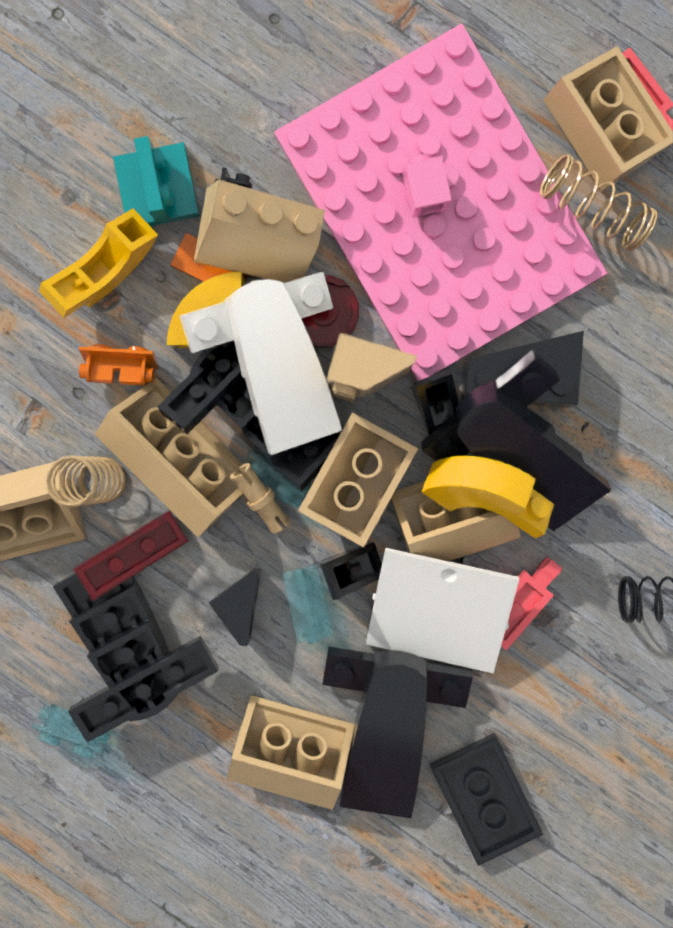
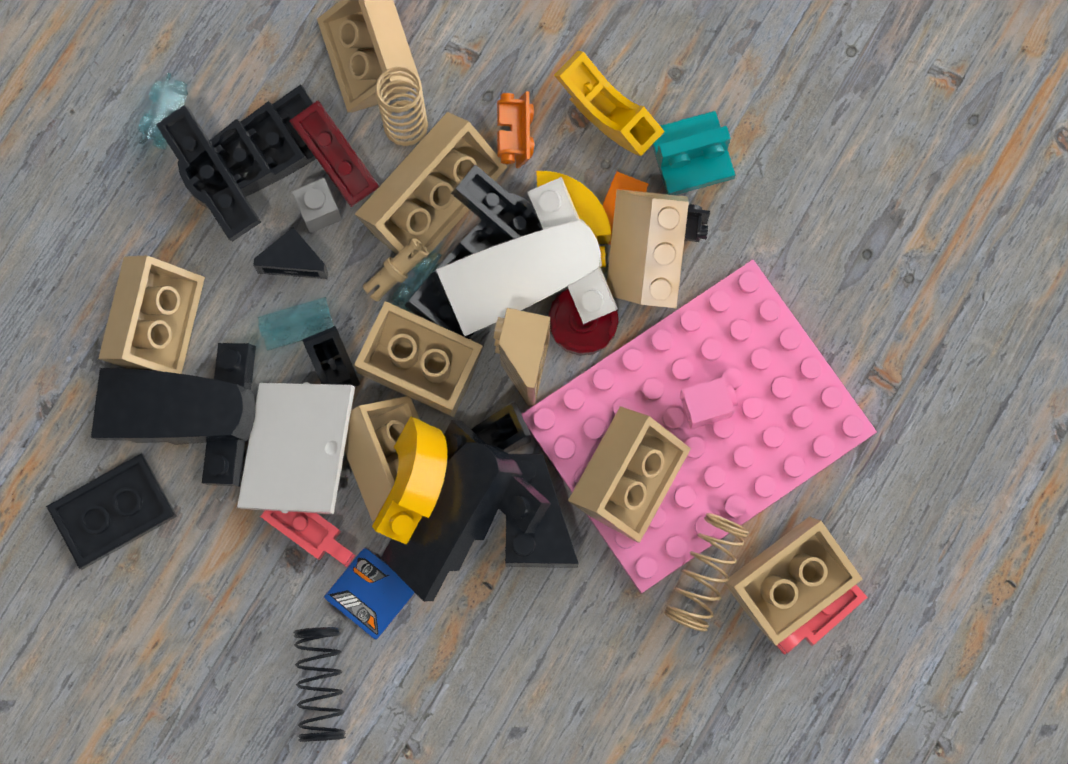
camera: 85 degrees right, 10 degrees down
(185, 576) = (317, 205): none -> light grey brick
(494, 273) = (630, 473): none -> tan slope
(585, 546) = (369, 593): none -> blue sticker

